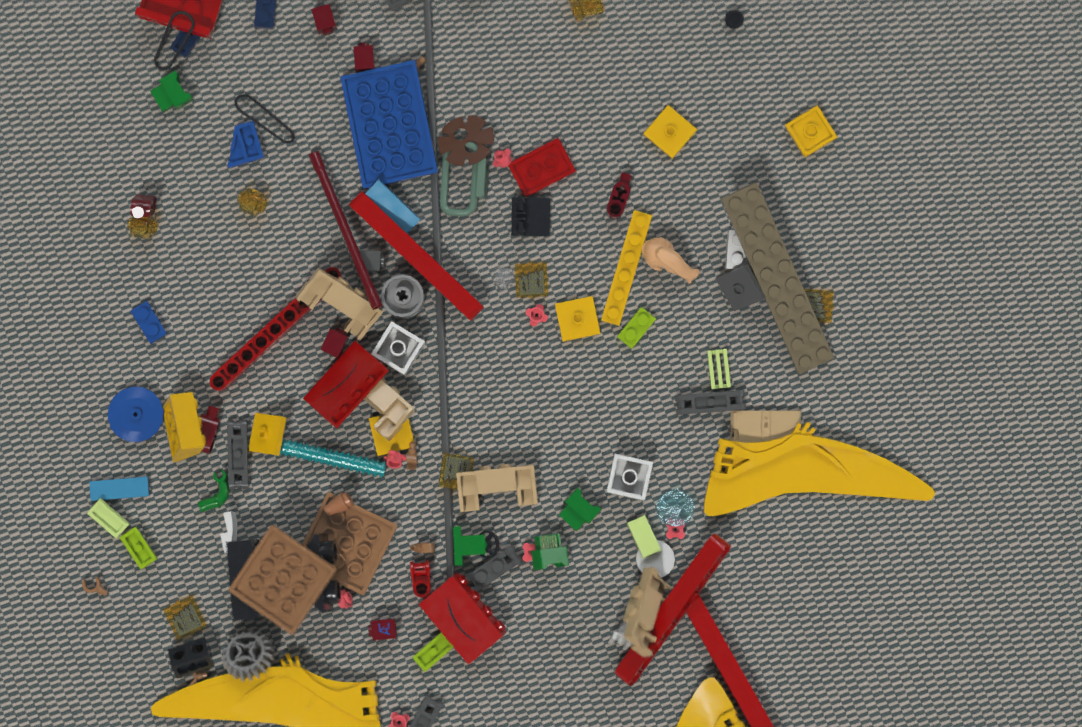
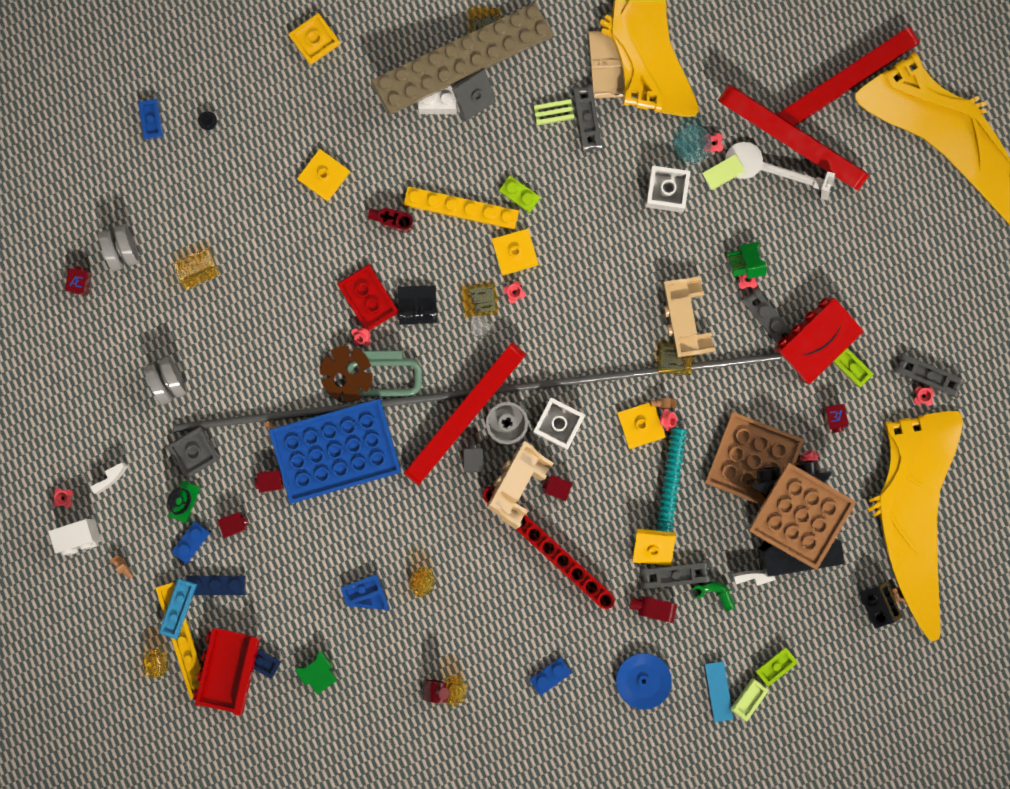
camera: 90 degrees left, 0 degrees up
(100, 589) = (819, 703): medium nougat piece -> none
(164, 36) = (260, 683): black piece -> none
(183, 426) = (653, 631): yellow slope -> none
(184, 617) = (840, 615): piece -> none
(238, 667) = (867, 543): light grey gear -> none
(267, 111) = (341, 584): black piece -> none
(339, 504) = (717, 469): nougat cone -> none
(345, 384) = (599, 472): red panel -> none
(371, 292) = (507, 453): dark red piece -> none
(391, 406) = (606, 440): tan bracket -> none
(392, 206) = (416, 441): dark azure tile -> none
(421, 577) = (781, 385): red piece -> none
(423, 547) = (752, 384): medium nougat piece -> none
(473, 545) = (746, 337): green piece -> none
(578, 510) = (703, 236): green piece -> none
(642, 610) = (798, 162): tan bracket -> none
(661, 254) = (446, 174): light nougat hair -> none

